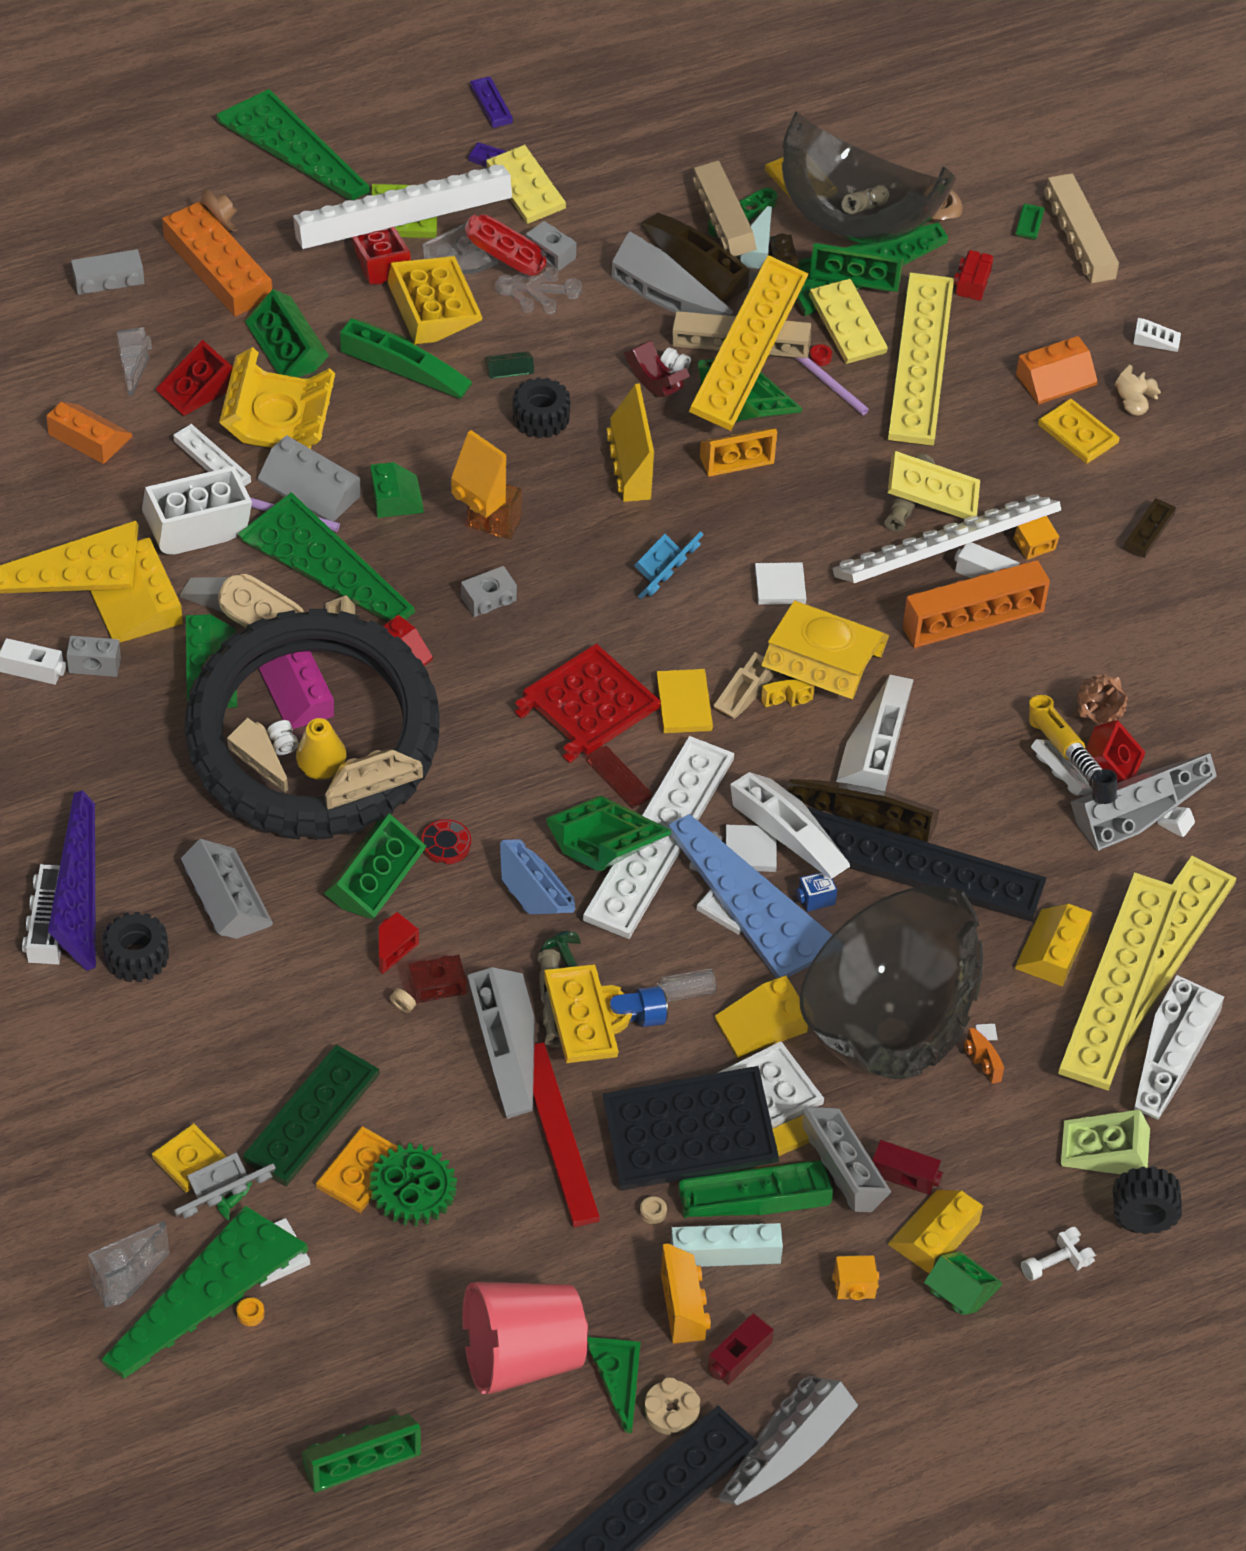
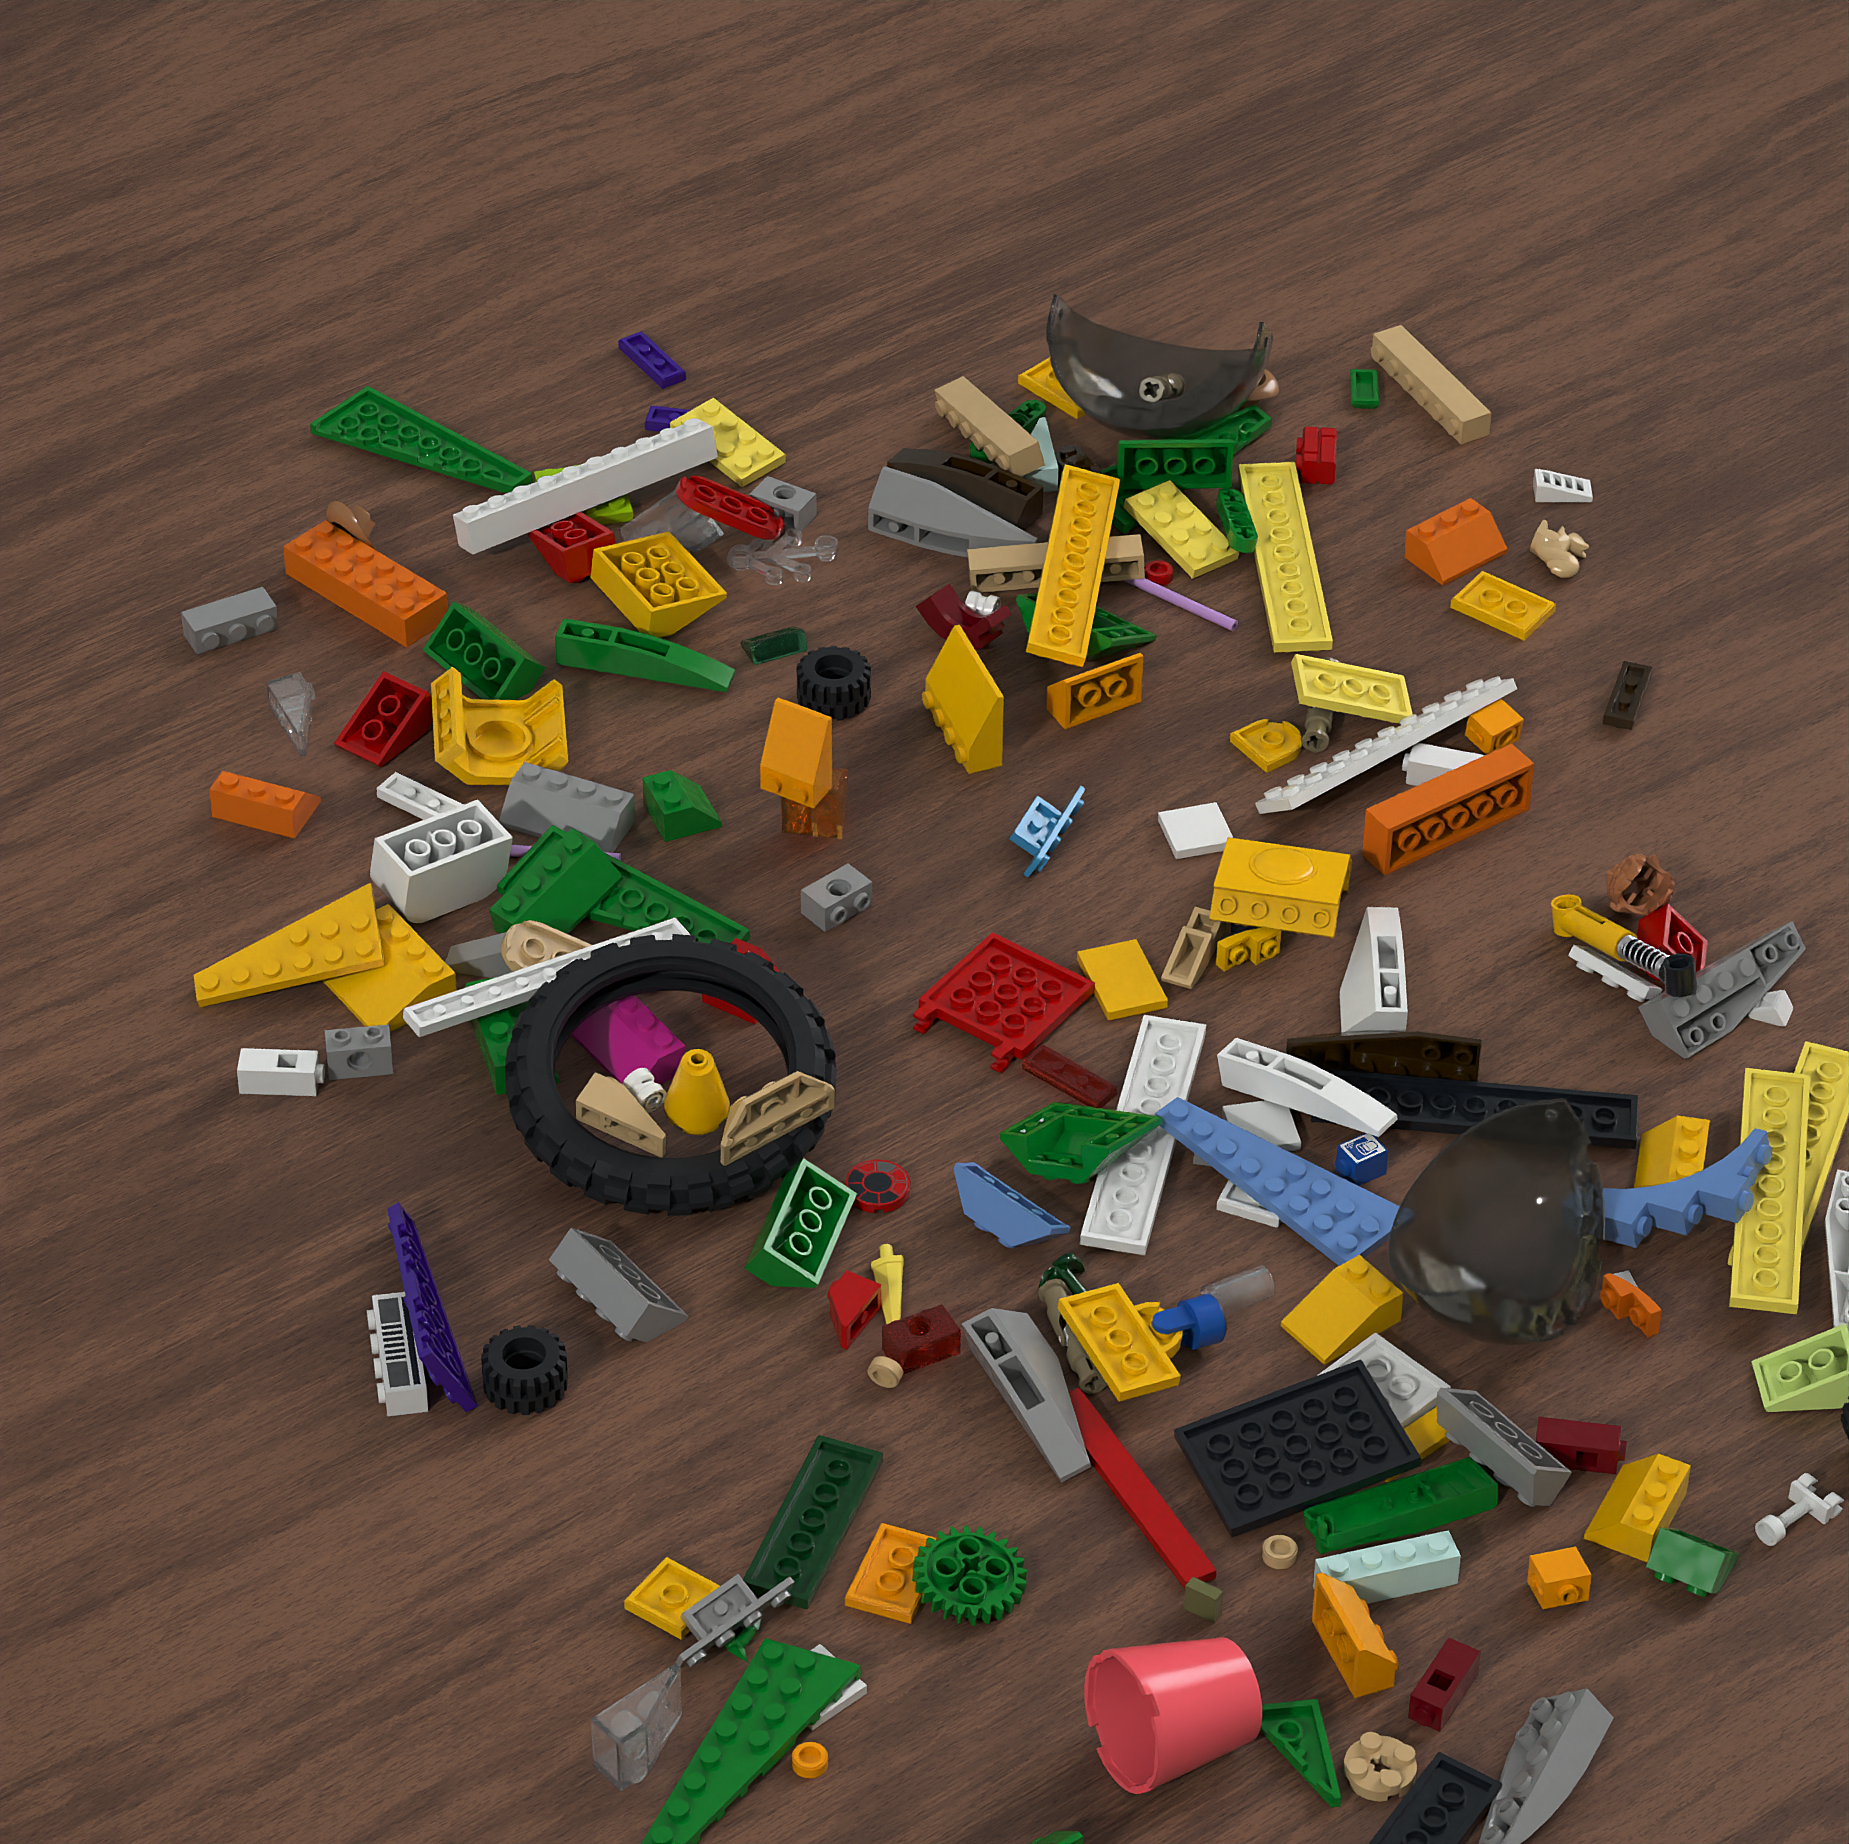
camera: 10 degrees left, 10 degrees down
(223, 626) = (511, 987): none -> white plate
(278, 548) = (559, 886): none -> green slope
(430, 923) = (889, 1273): none -> light yellow bar
(581, 1240) = (1203, 1600): none -> olive tile
(860, 518) = (1268, 743): none -> yellow tile
(890, 320) = (1236, 520): none -> green beam
(1044, 981) = (1678, 1205): none -> medium blue arch

